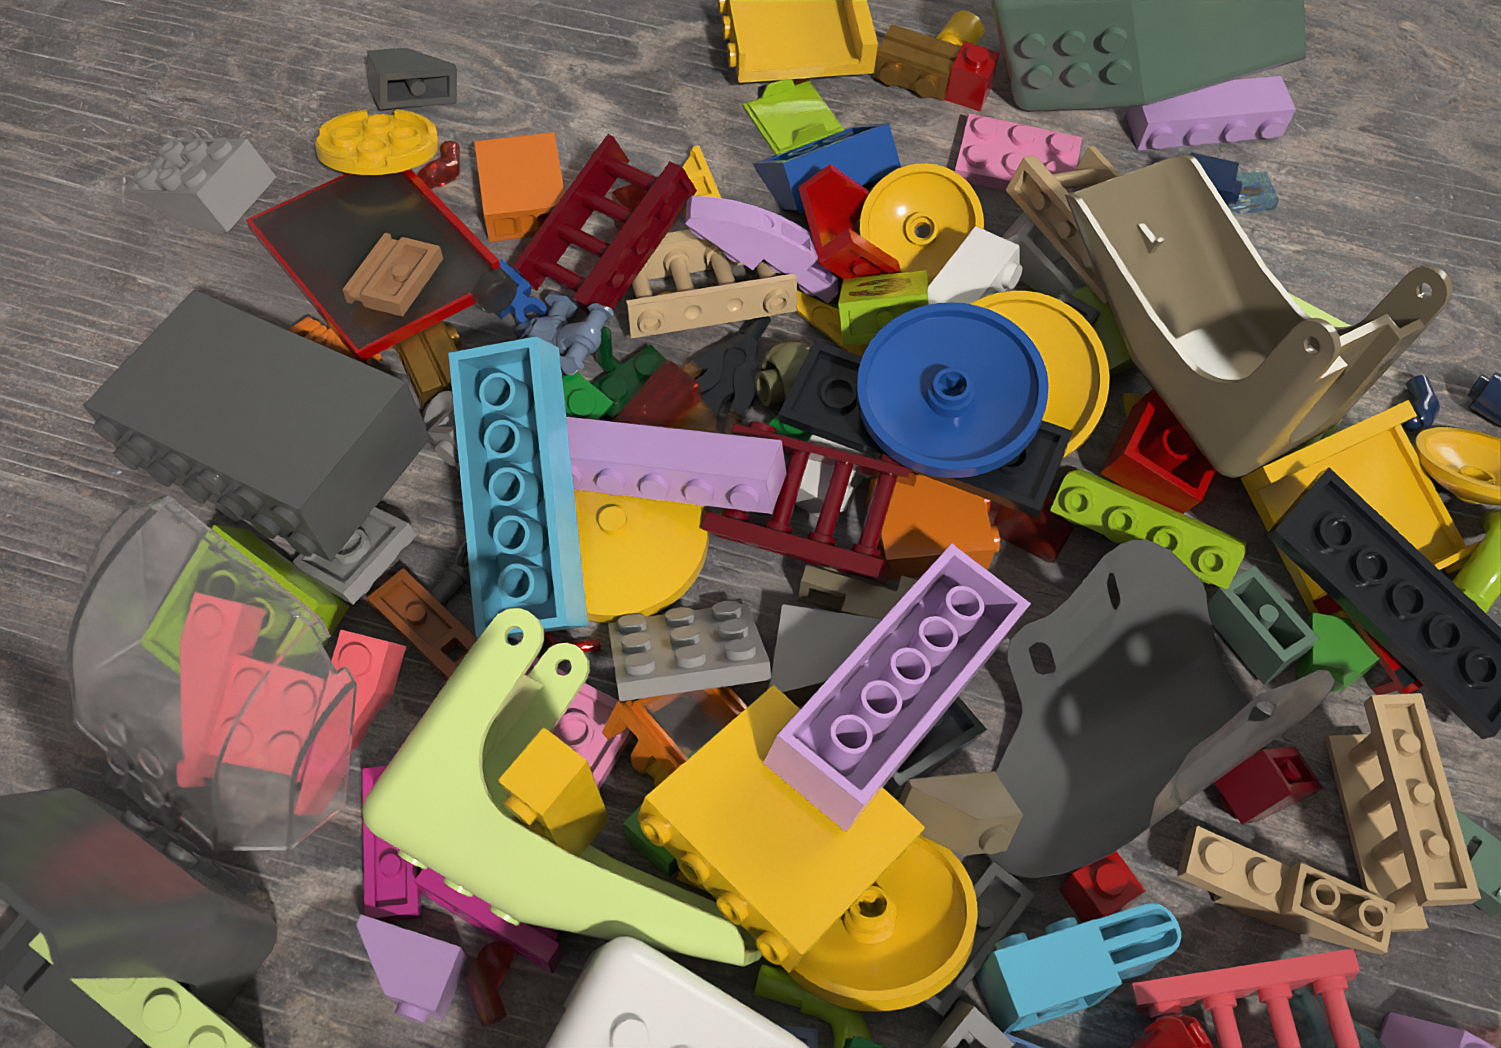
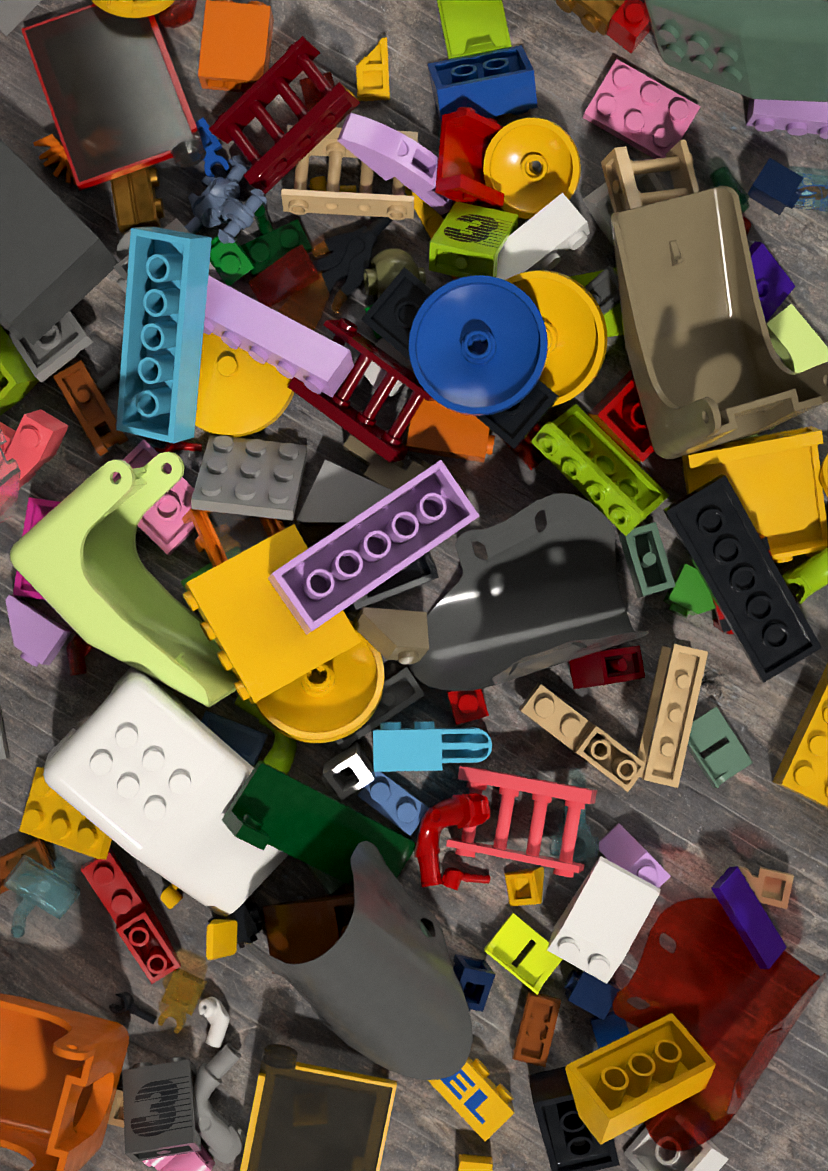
camera: 25 degrees right, 25 degrees up
(393, 274) = (116, 122): medium nougat plate -> none
(554, 794) = (130, 569): yellow brick -> none

